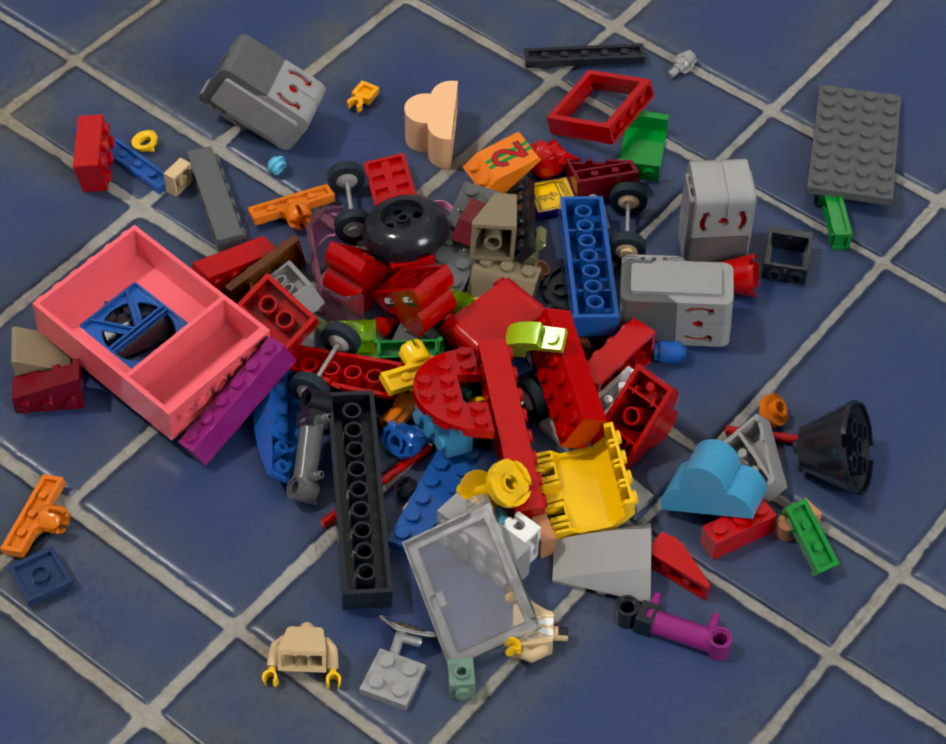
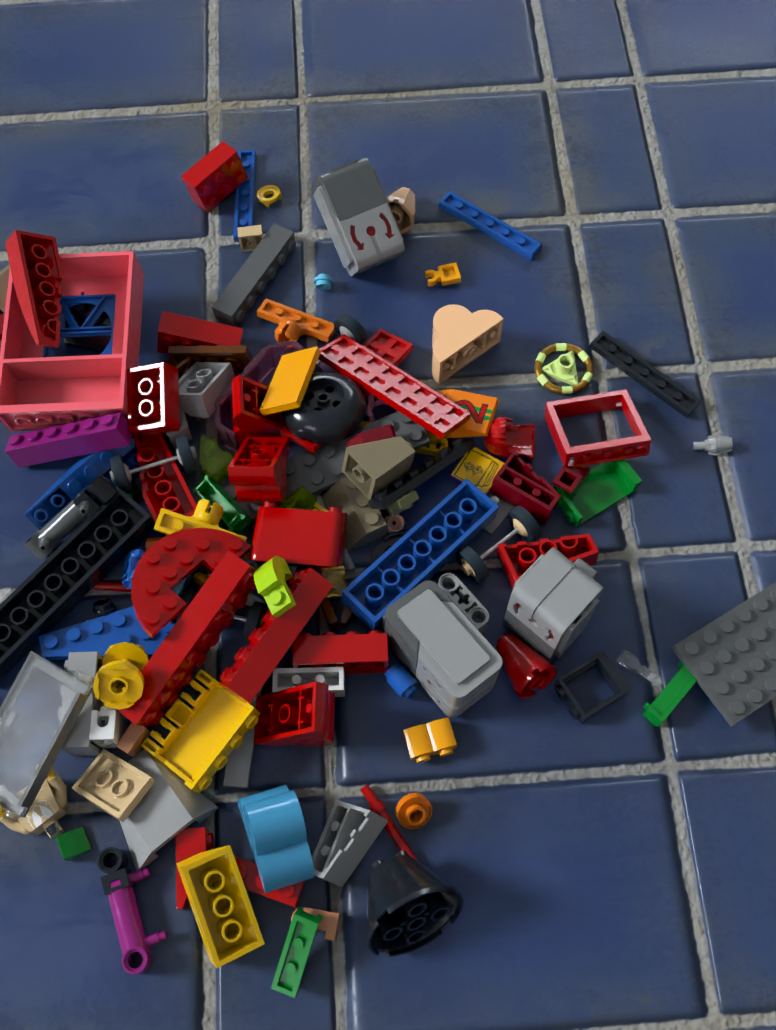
camera: 50 degrees right, 15 degrees up
(81, 296) = (37, 283): none -> red wedge
(349, 41) = (490, 225): none -> blue tile
(363, 226) = (290, 381): none -> light orange tile
(435, 178) = (394, 386): none -> plate
(526, 93) = (563, 369): none -> yellowish green piece
(569, 567) = (113, 785): none -> tan plate
(585, 632) = (73, 843): none -> green slope
(621, 148) = (572, 478): none -> dark red slope
(660, 216) = (519, 557): none -> red wedge
(730, 367) = (430, 739): none -> light orange brick
(731, 556) = (220, 905): none -> yellow slope
(792, 224) = (632, 663): none -> clear piece

